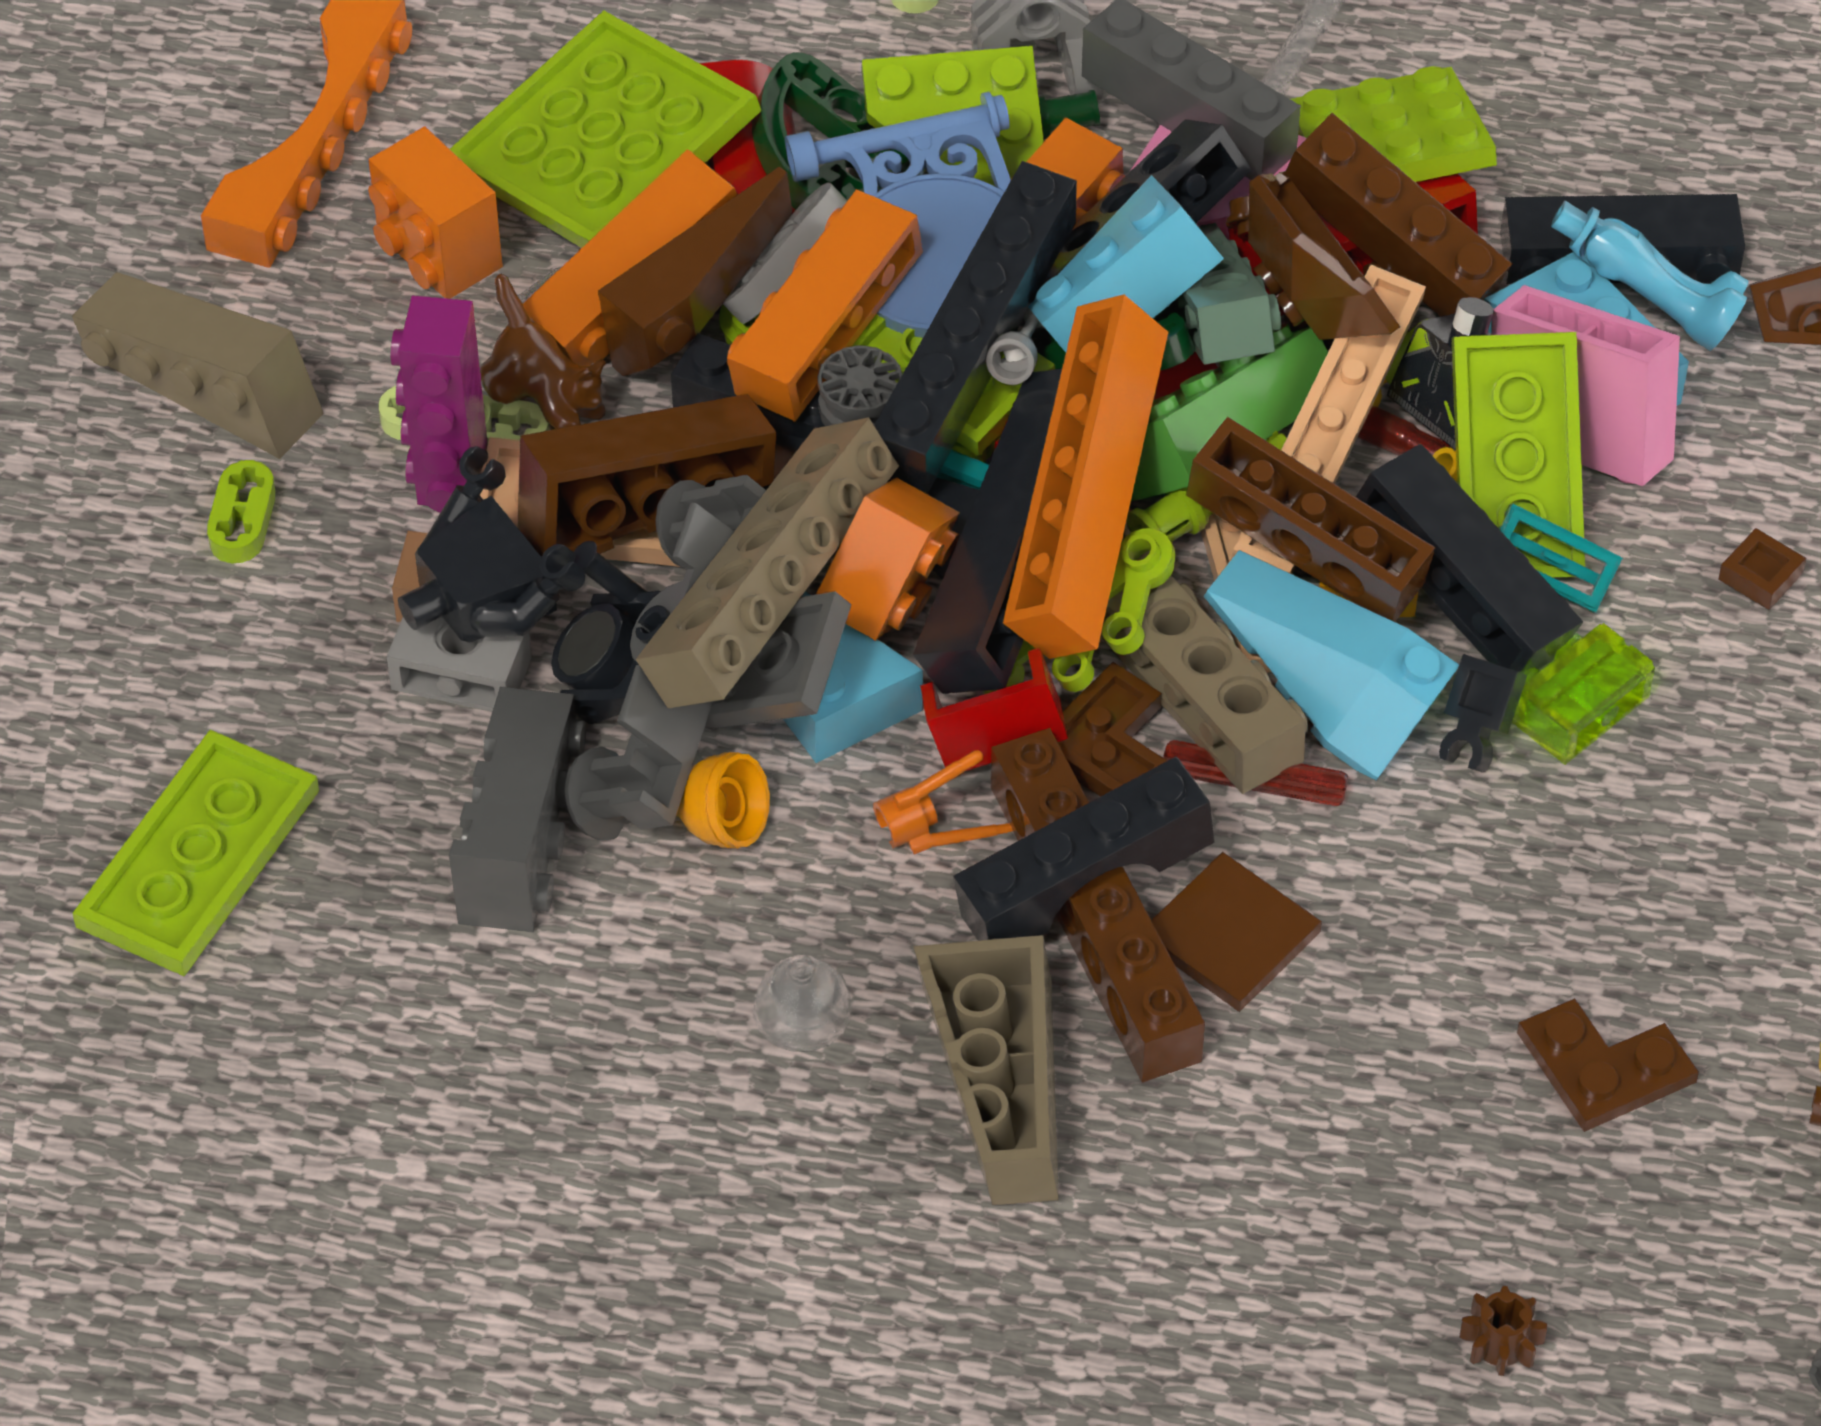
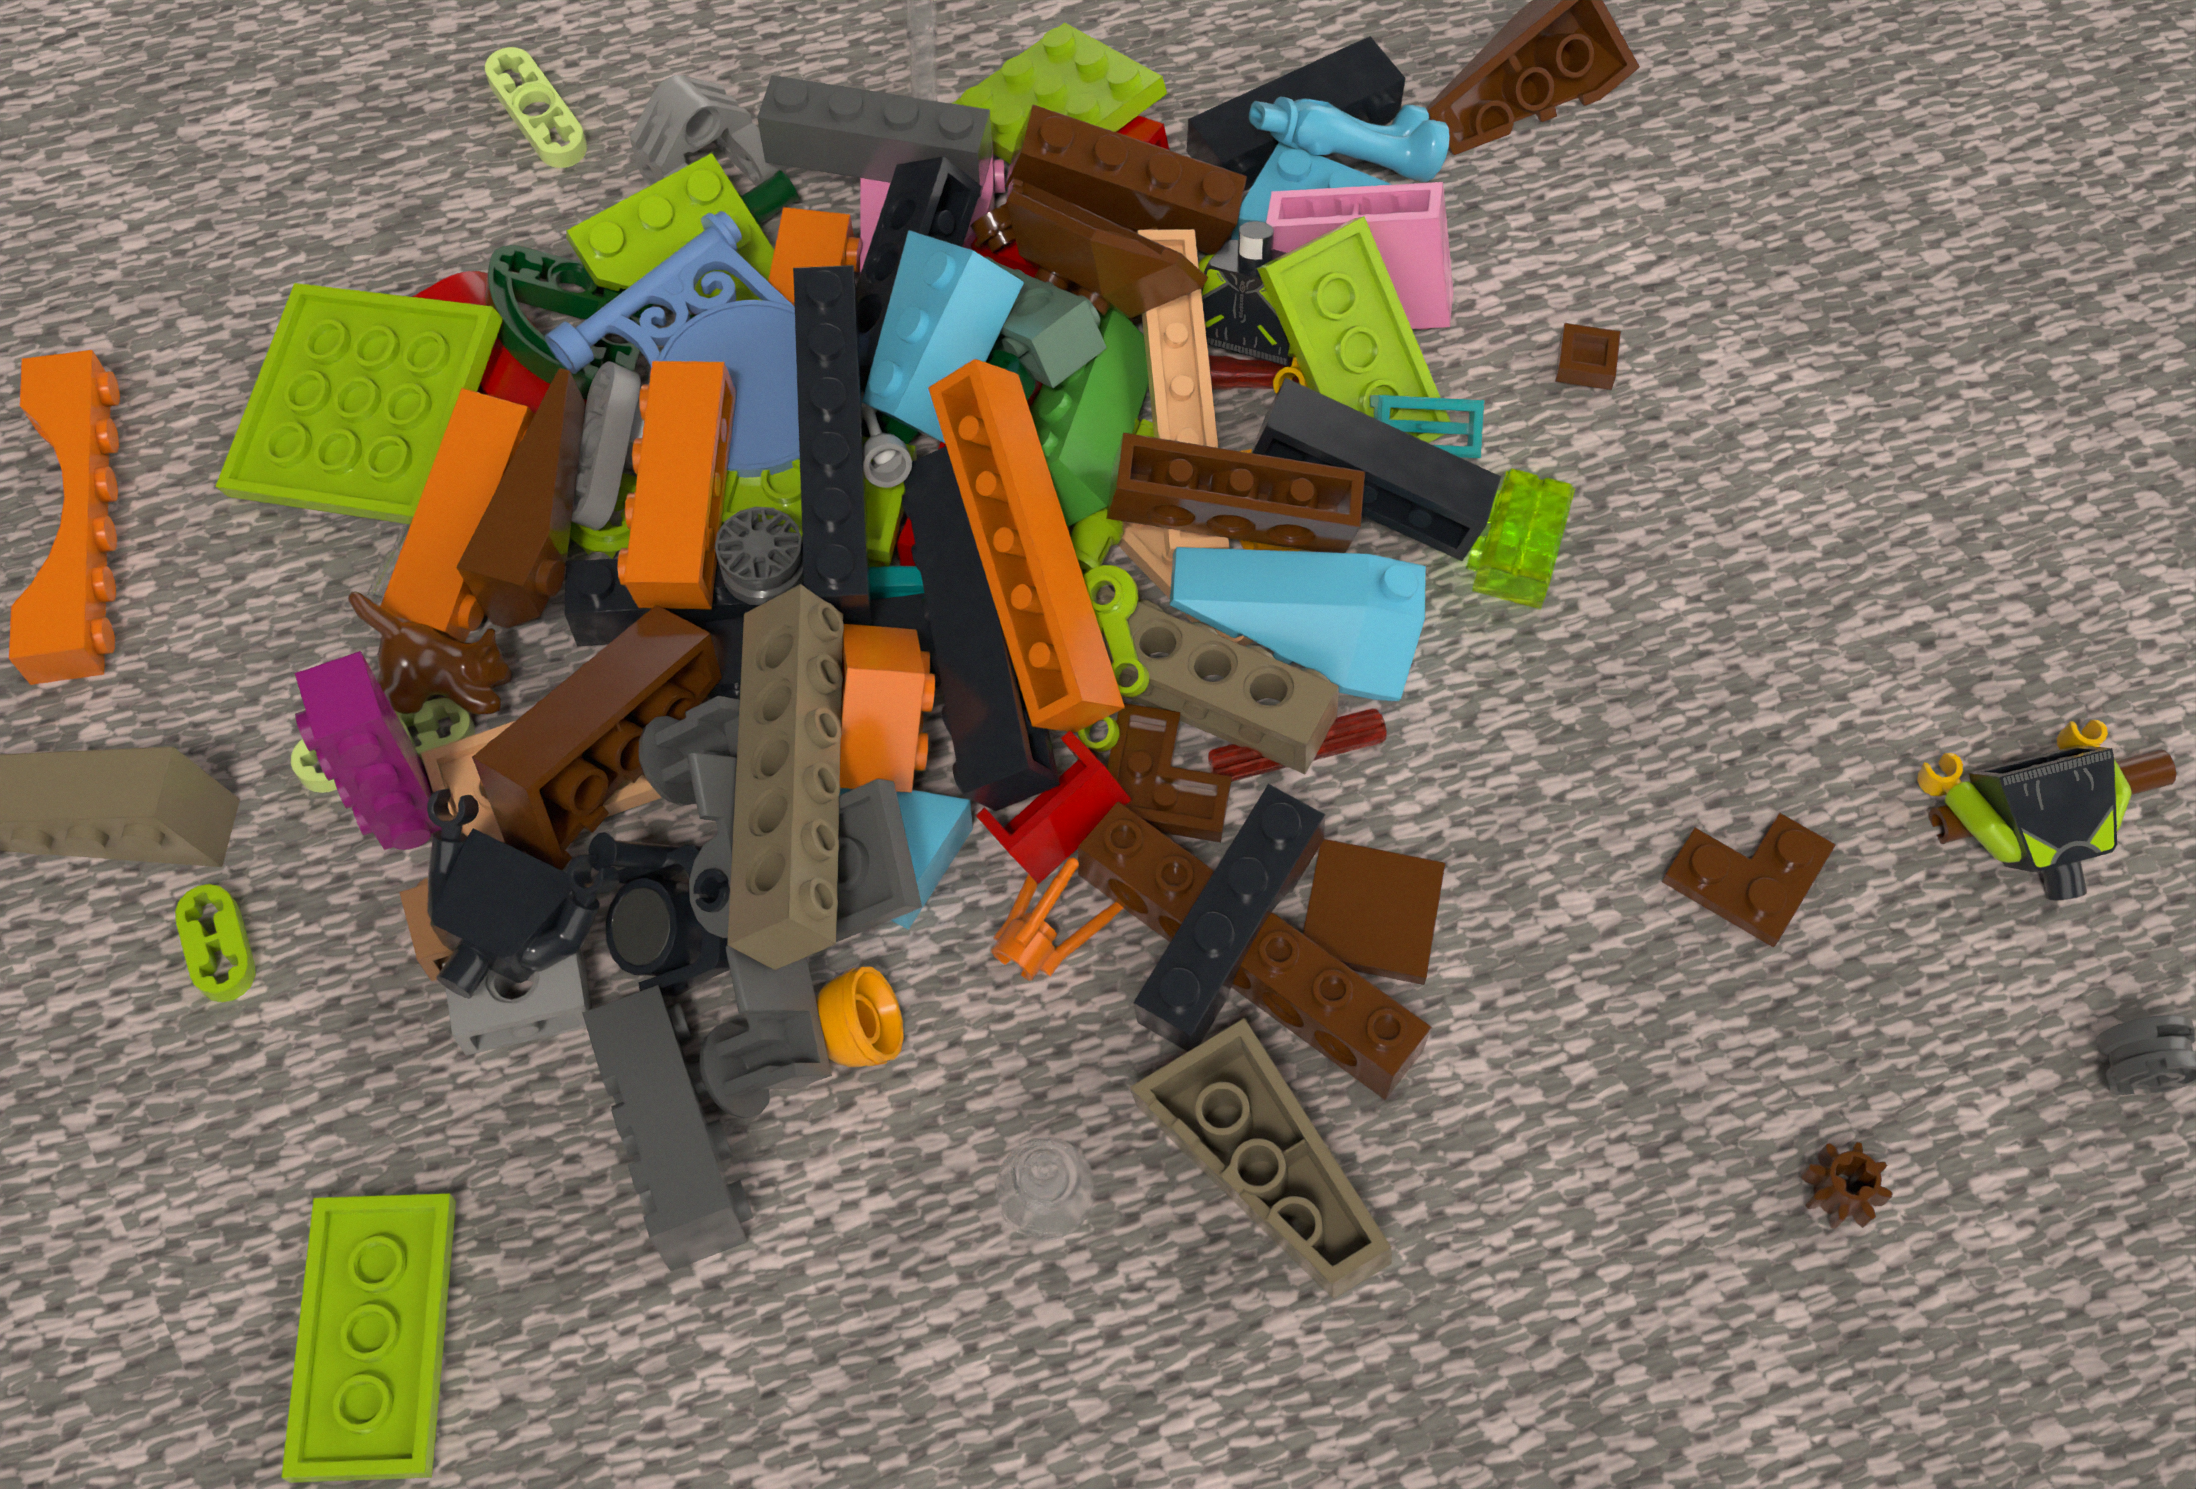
camera: 30 degrees left, 10 degrees up
(434, 214) = (243, 553): orange brick -> none
(1484, 701) = (1458, 588): black plate -> none

